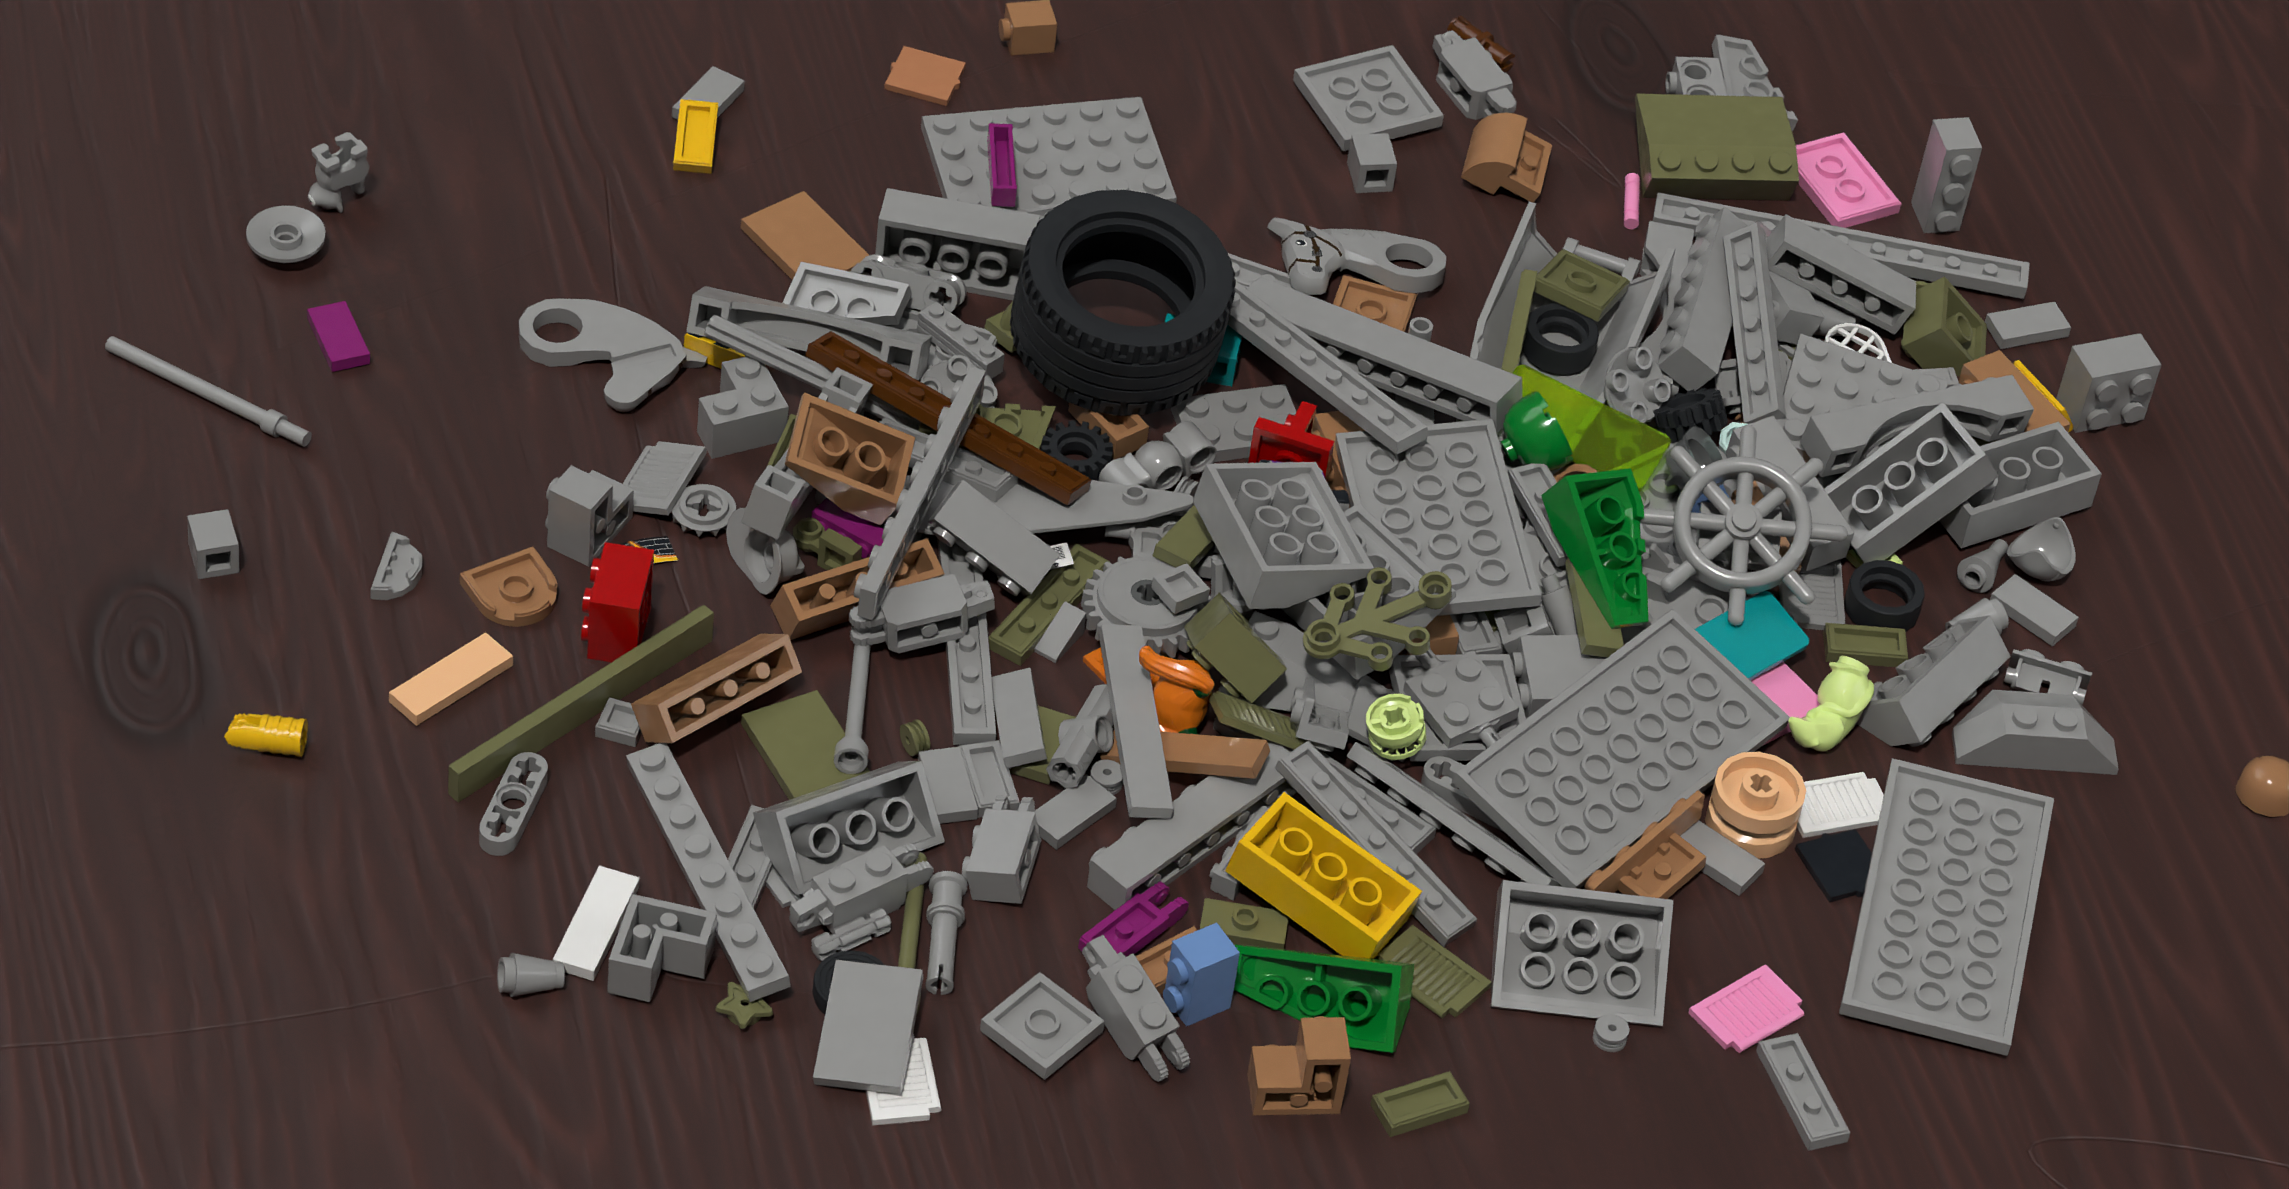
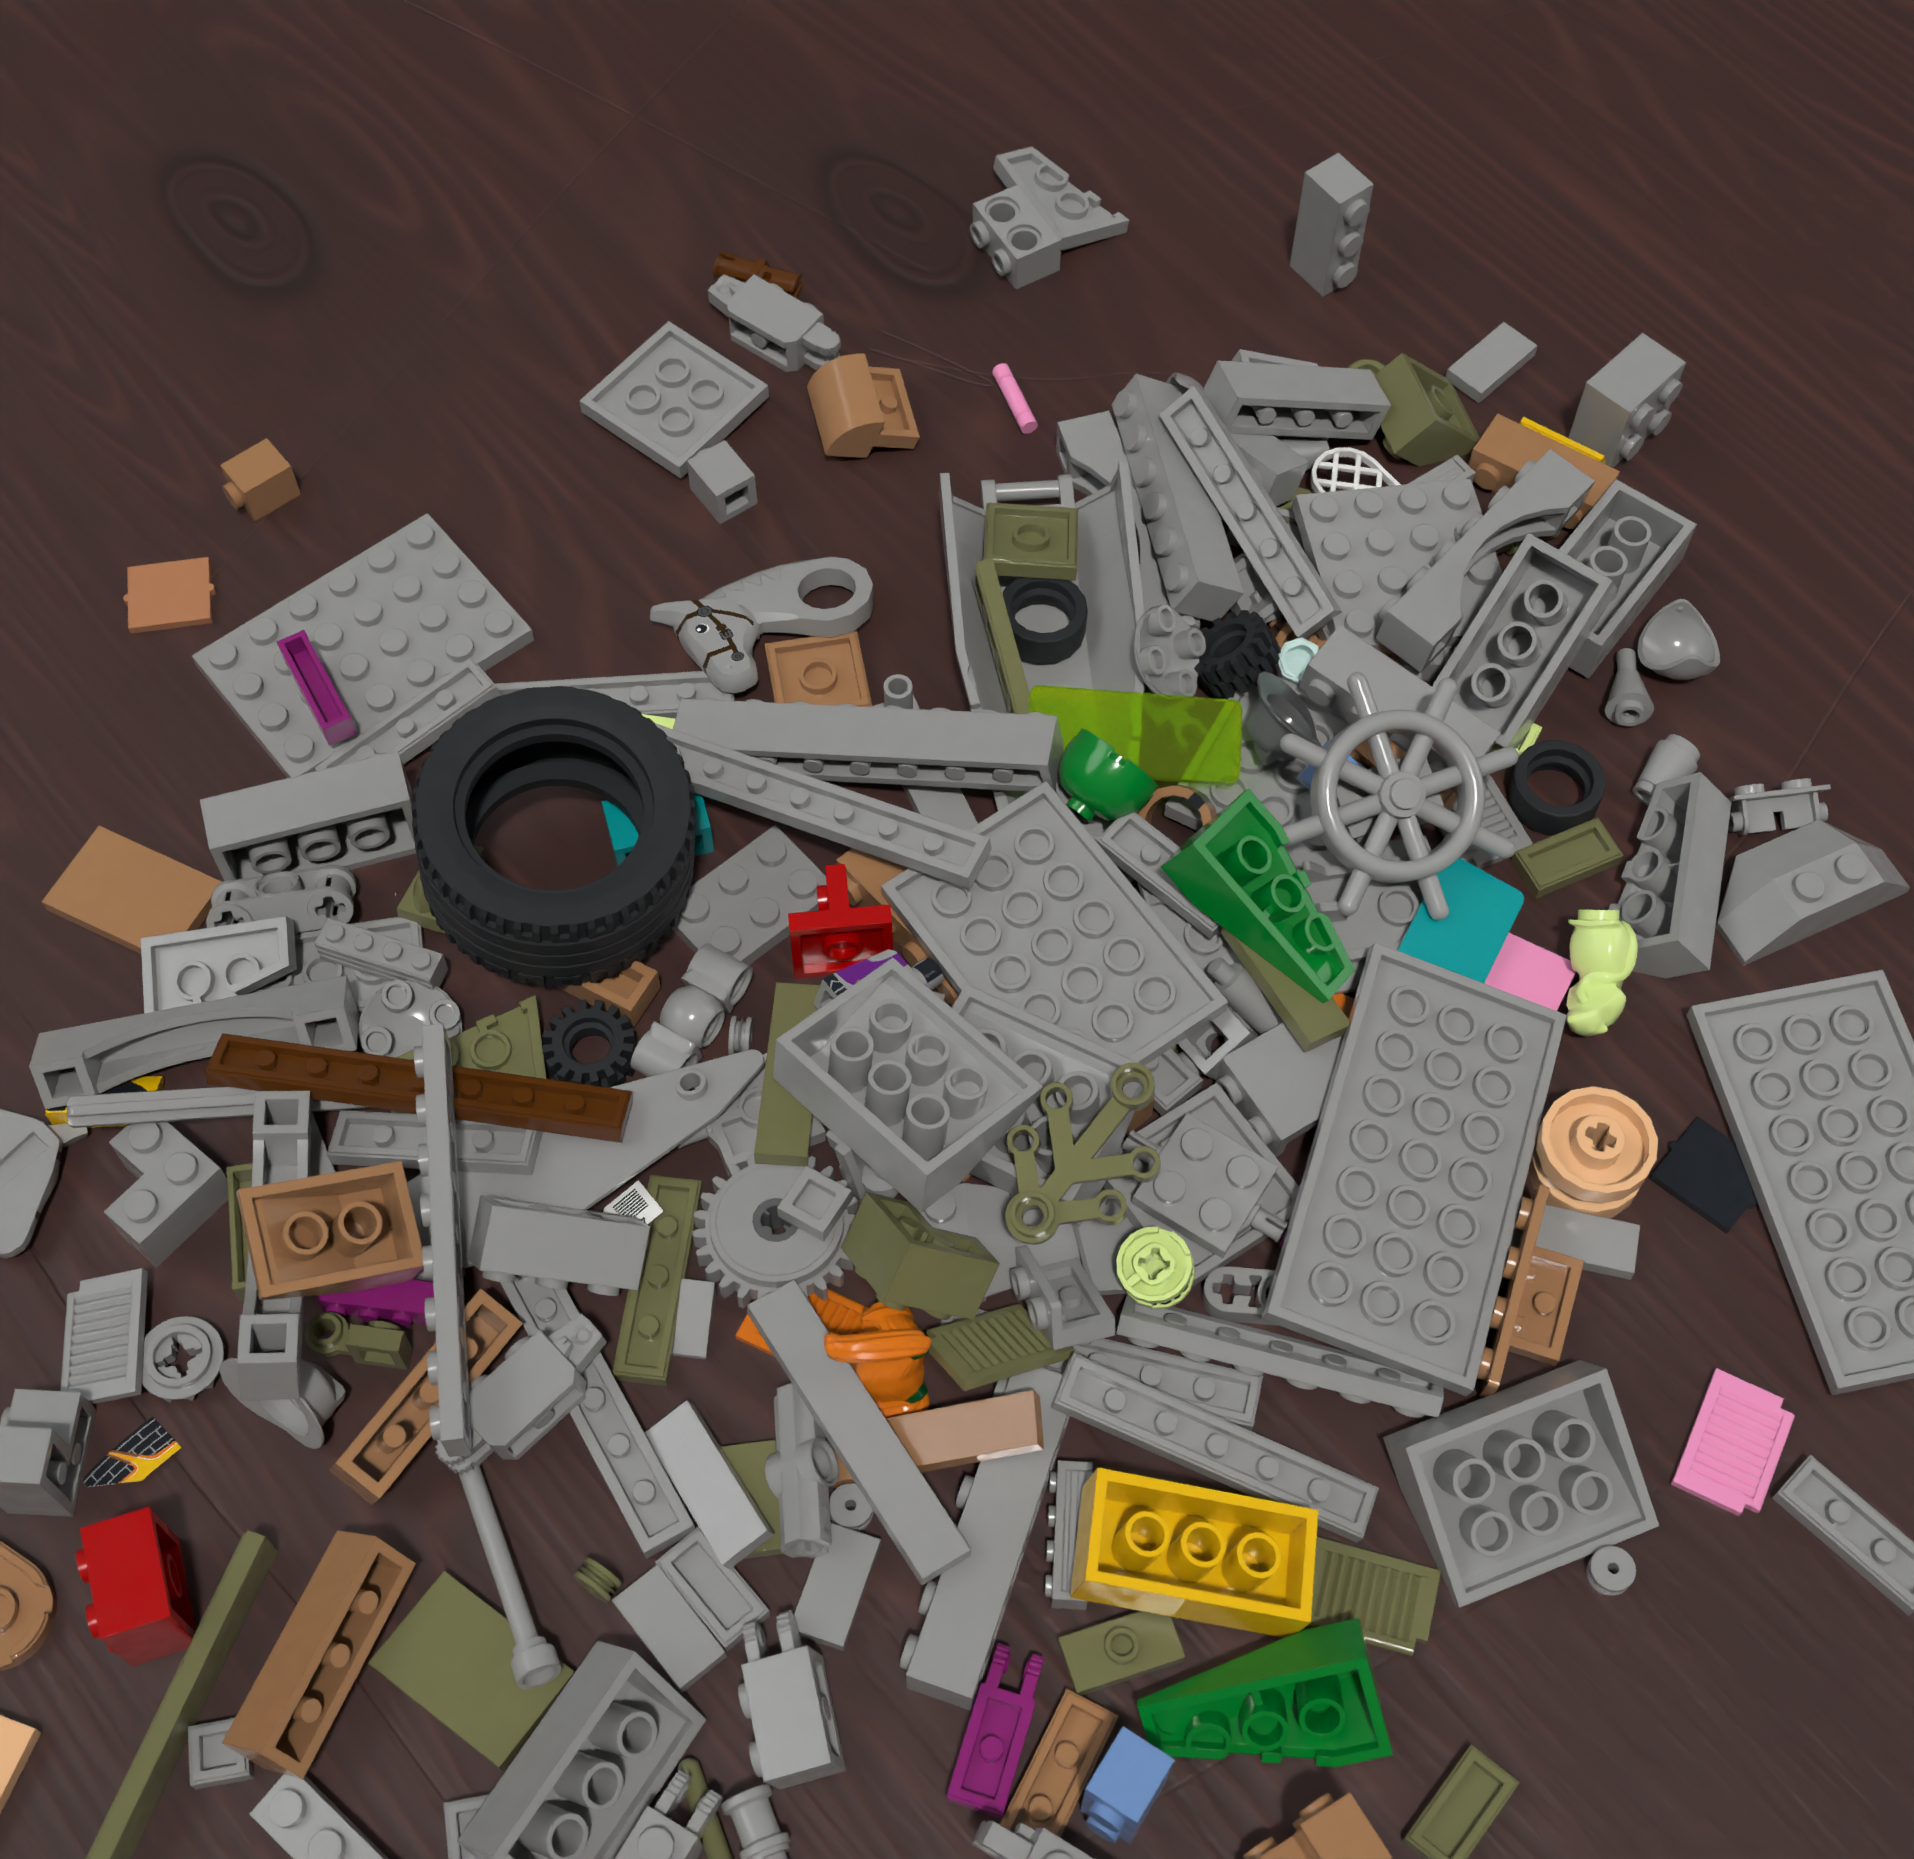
camera: 20 degrees left, 15 degrees up
(1716, 147) = (1071, 293): olive slope -> none
(1840, 804) = (1666, 1082): white window -> none
(1843, 182) = (1208, 274): bright pink tile -> none
(1905, 256) = (1312, 340): light grey plate -> none
(2035, 610) = (1707, 721): light grey tile -> none

